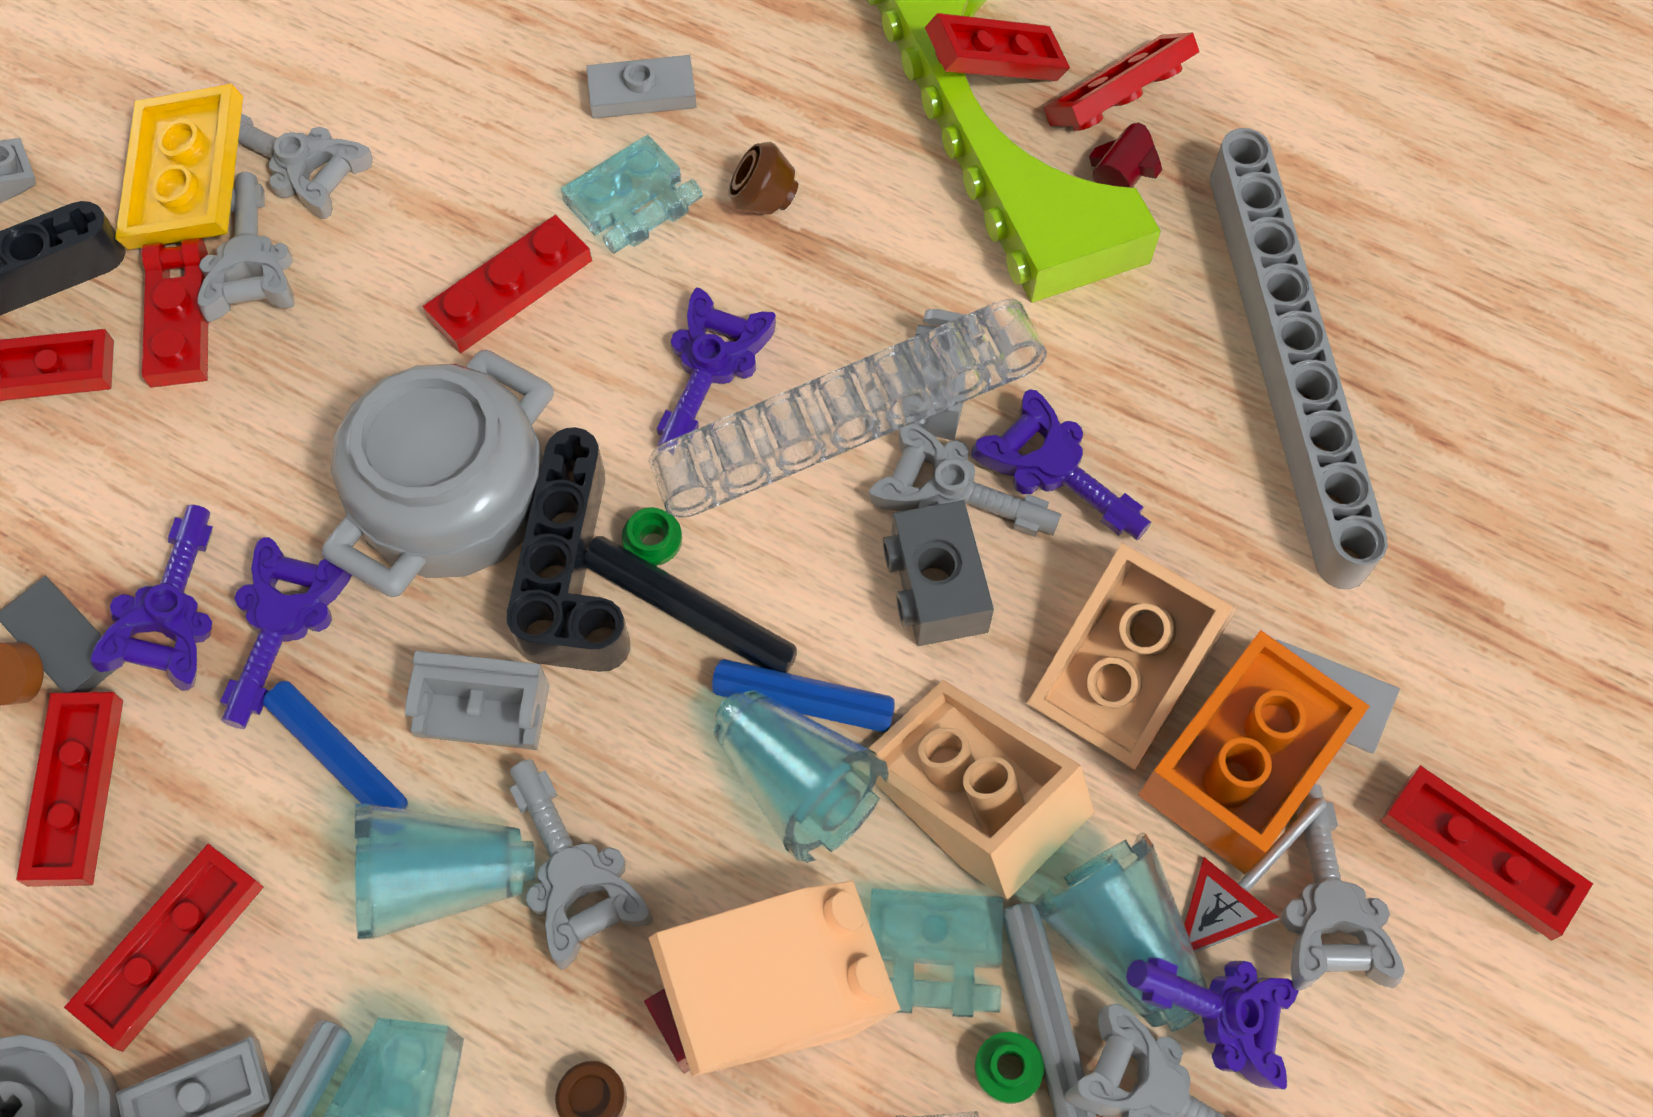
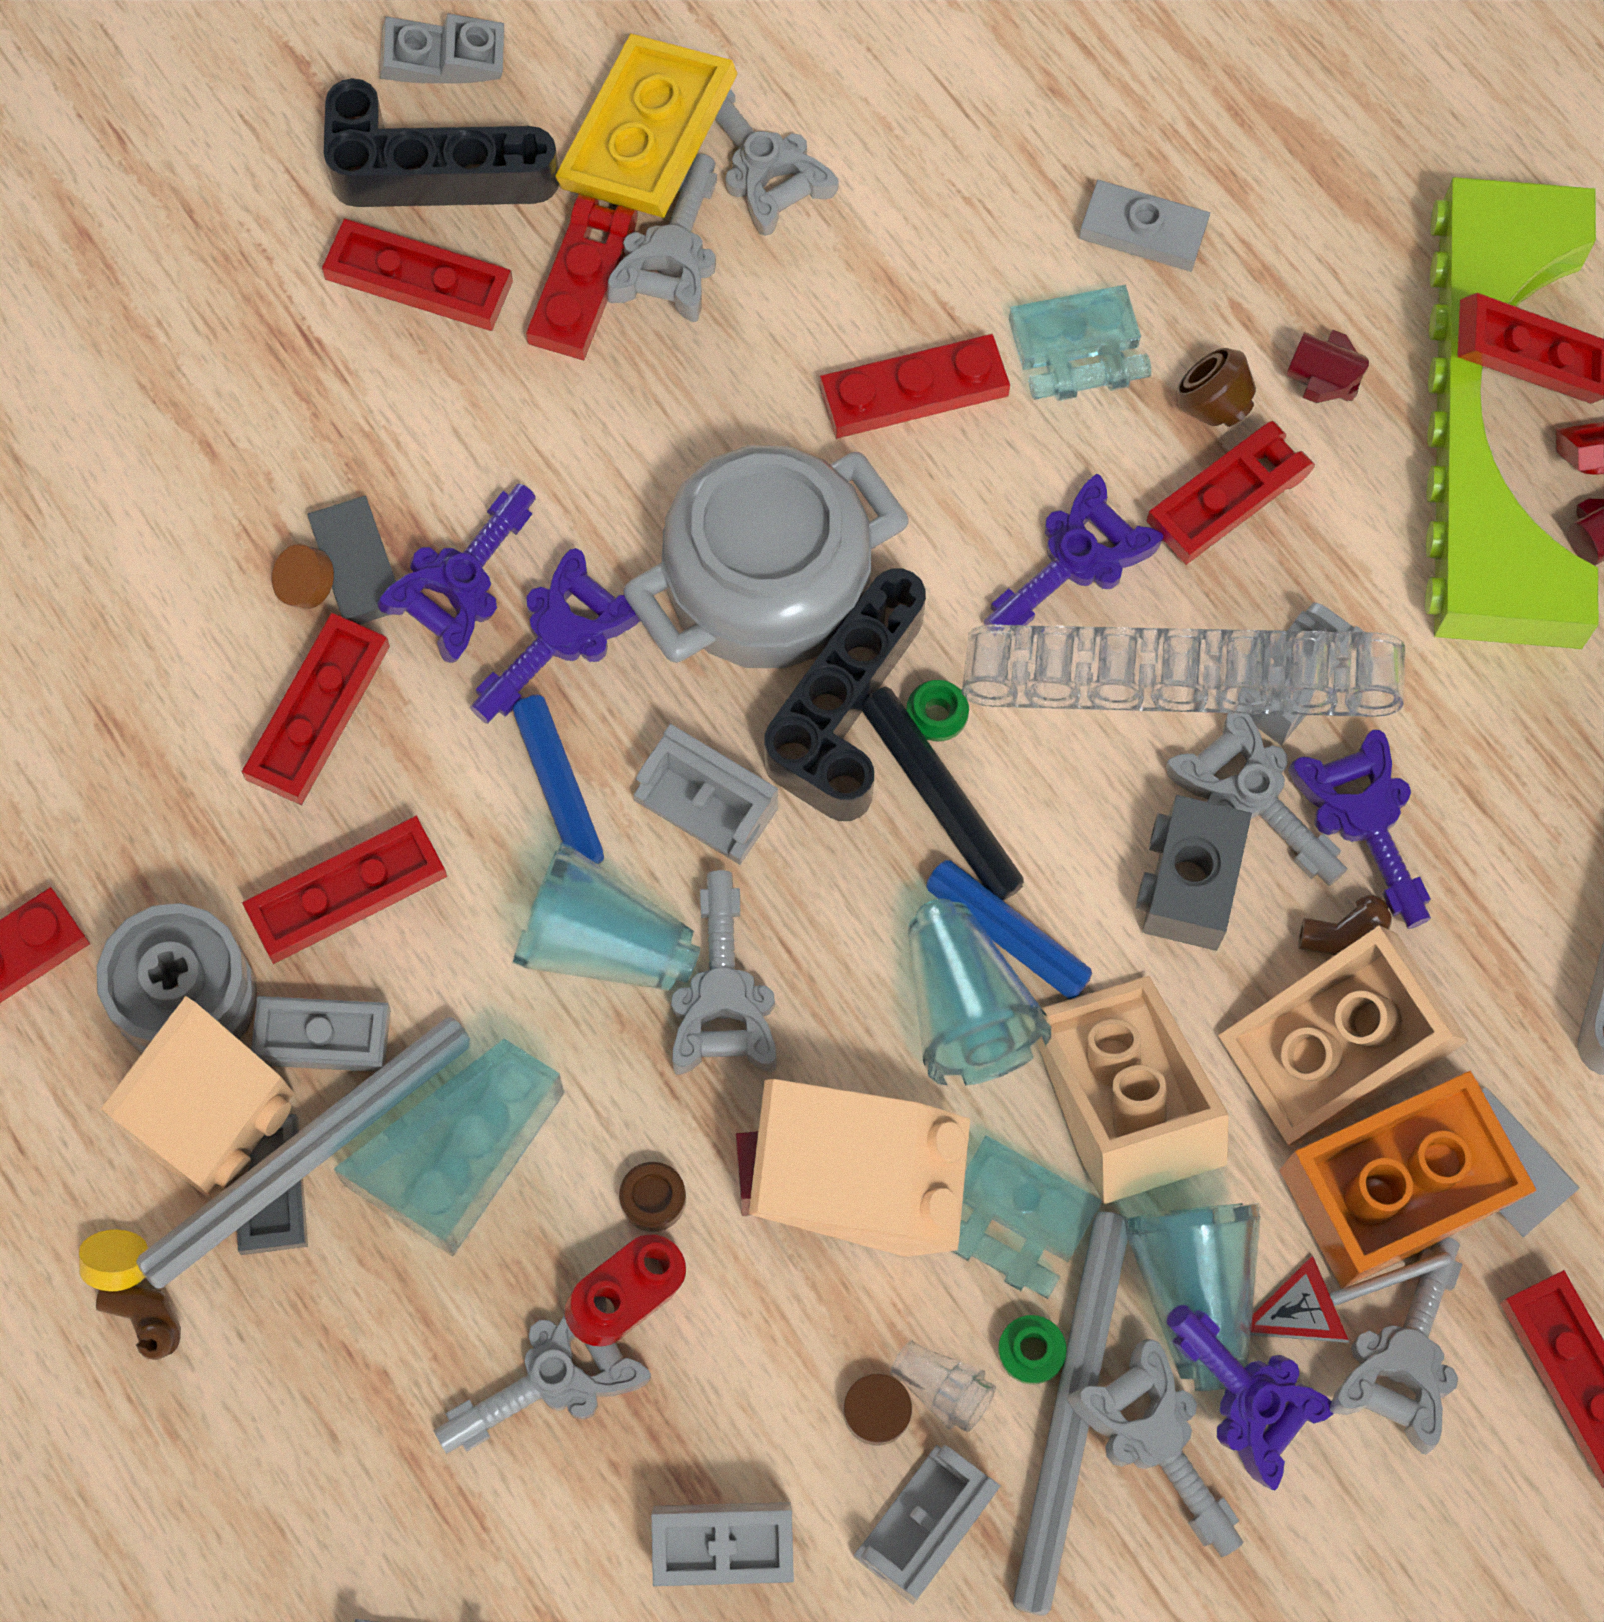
camera: 25 degrees right, 5 degrees up
(811, 258) = (1228, 492): none -> red plate
(842, 131) = (1328, 367): none -> dark red piece
(1084, 576) = (1335, 937): none -> reddish brown arm

